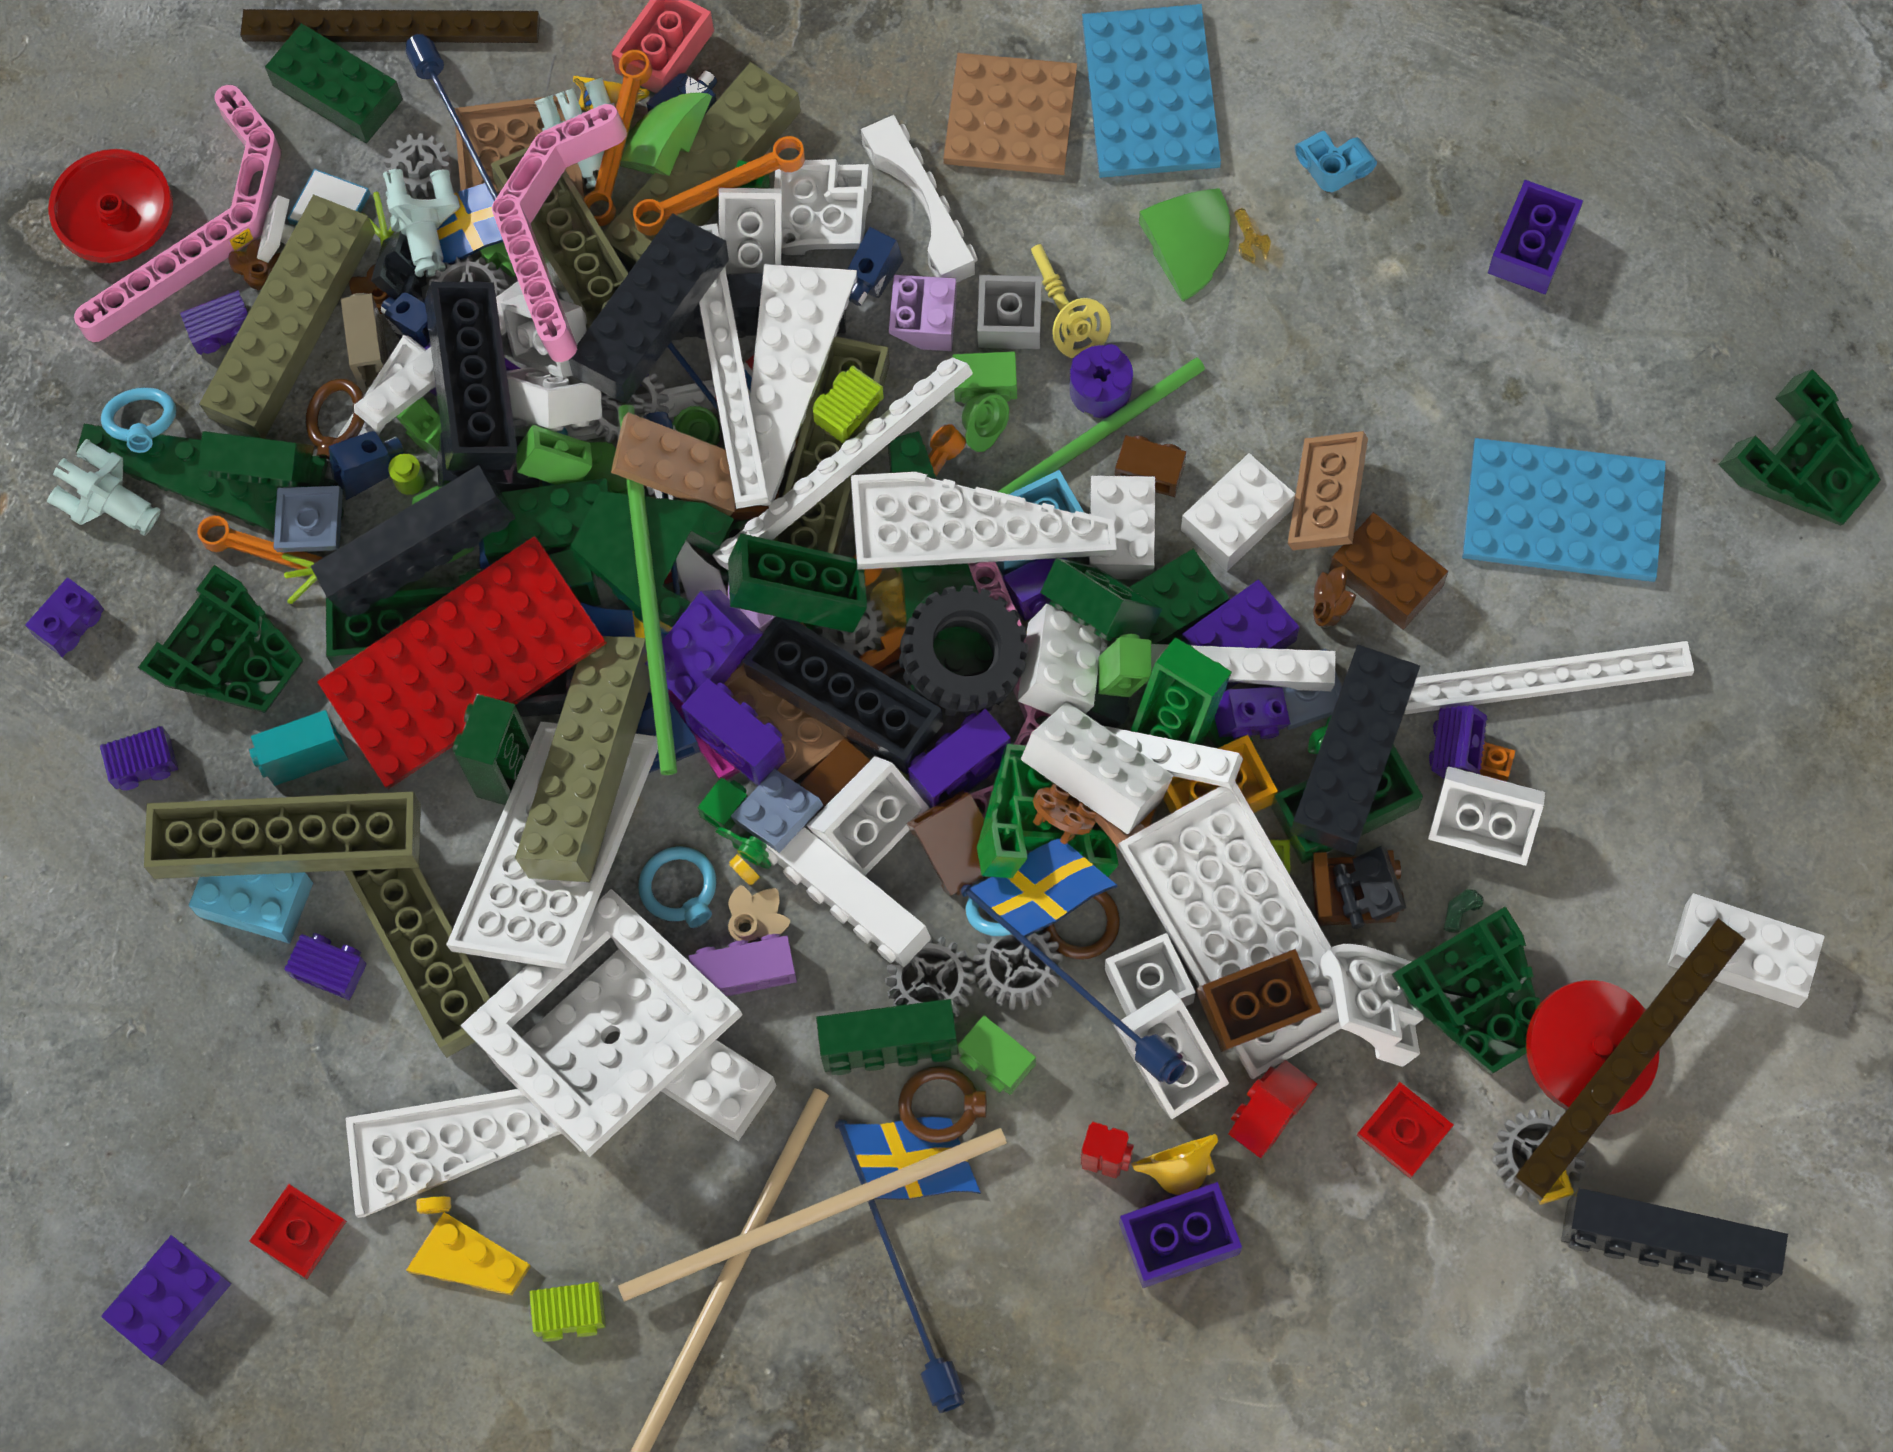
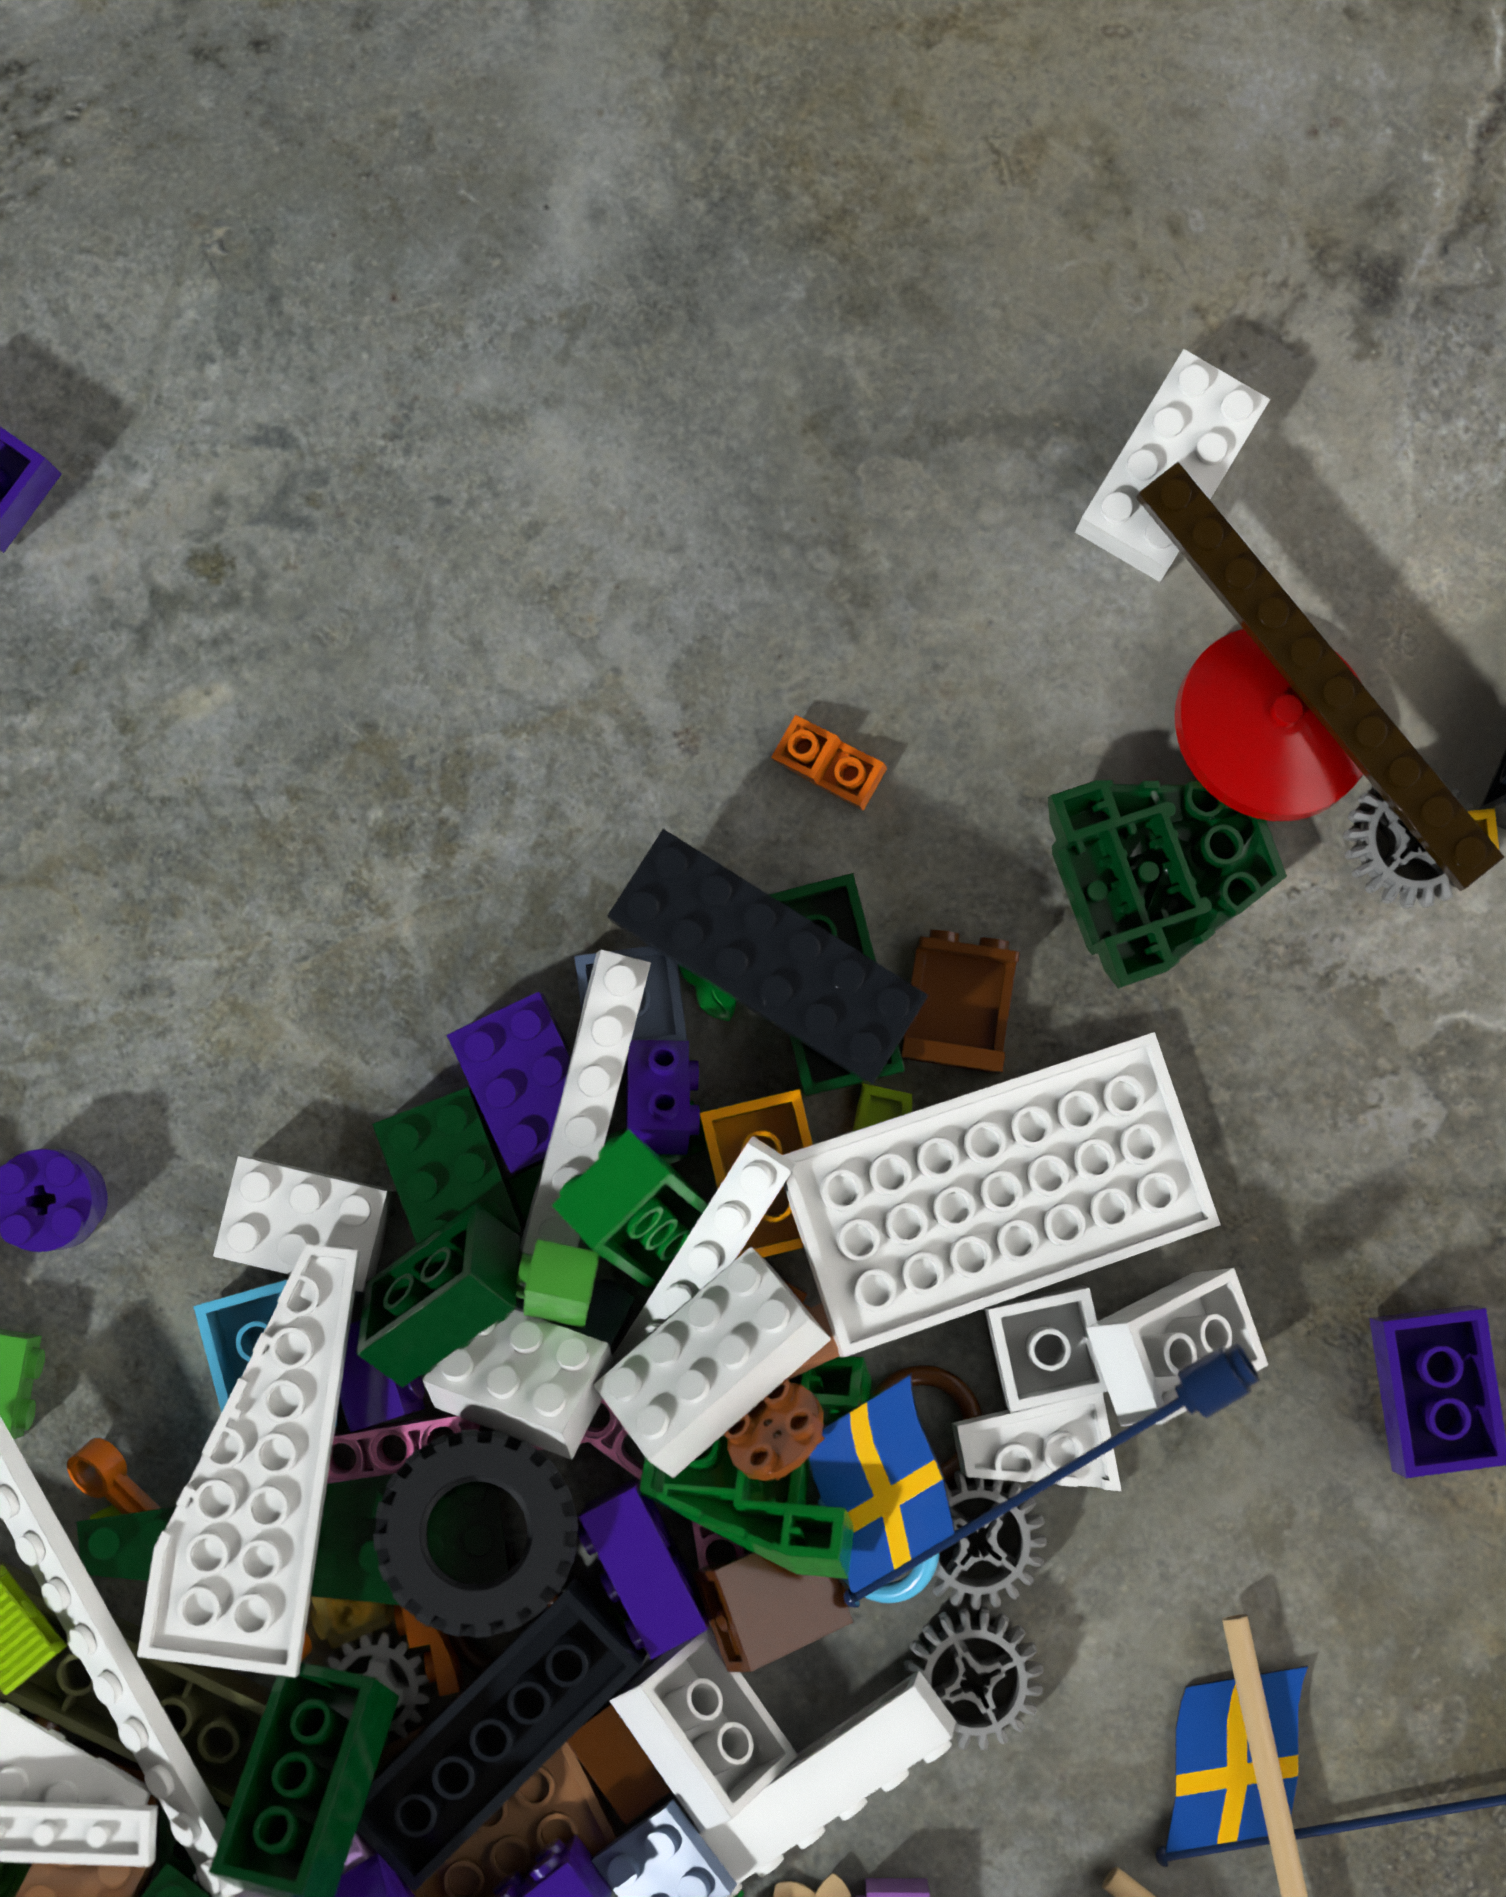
camera: 75 degrees left, 15 degrees up
(887, 1036) = (1058, 1772): dark green brick -> none
(974, 1104) = (1176, 1649): reddish brown piece -> none
(984, 420) = (73, 1401): bright green hat -> none
(996, 1056) = (1111, 1602): bright green brick -> none
(1083, 1020) = (1038, 1442): none -> white wing
(1106, 427) = (133, 1225): bright green piece -> none
(1106, 1150) = (1297, 1473): red brick -> none
(1150, 459) = (206, 1155): reddish brown brick -> none
(1180, 1167) = (1329, 1366): yellow hat -> none
(1237, 512) = (319, 1037): white brick -> none
(1258, 1000) = (1127, 1199): reddish brown brick -> none
(1272, 1105) = (1276, 1209): red brick -> none
(1328, 491) = (321, 891): medium nougat plate -> none
(1331, 597) = (496, 928): reddish brown plate -> none
(1372, 1001) = (1151, 1031): white slope -> none
(1378, 884) = (971, 972): black plate -> none
(1389, 571) = (469, 831): reddish brown brick -> none
(1405, 1130) = (1337, 1022): red plate -> none
(1458, 739) = (769, 796): dark purple brick -> none
(1458, 906) = (1015, 856): clear green arm -> none
(1487, 815) = (899, 784): white brick -> none
(1551, 677) = (690, 629): white plate -> none
(1564, 509) = (424, 541): dark azure plate -> none
(1816, 460) = (433, 148): dark green wedge -> none

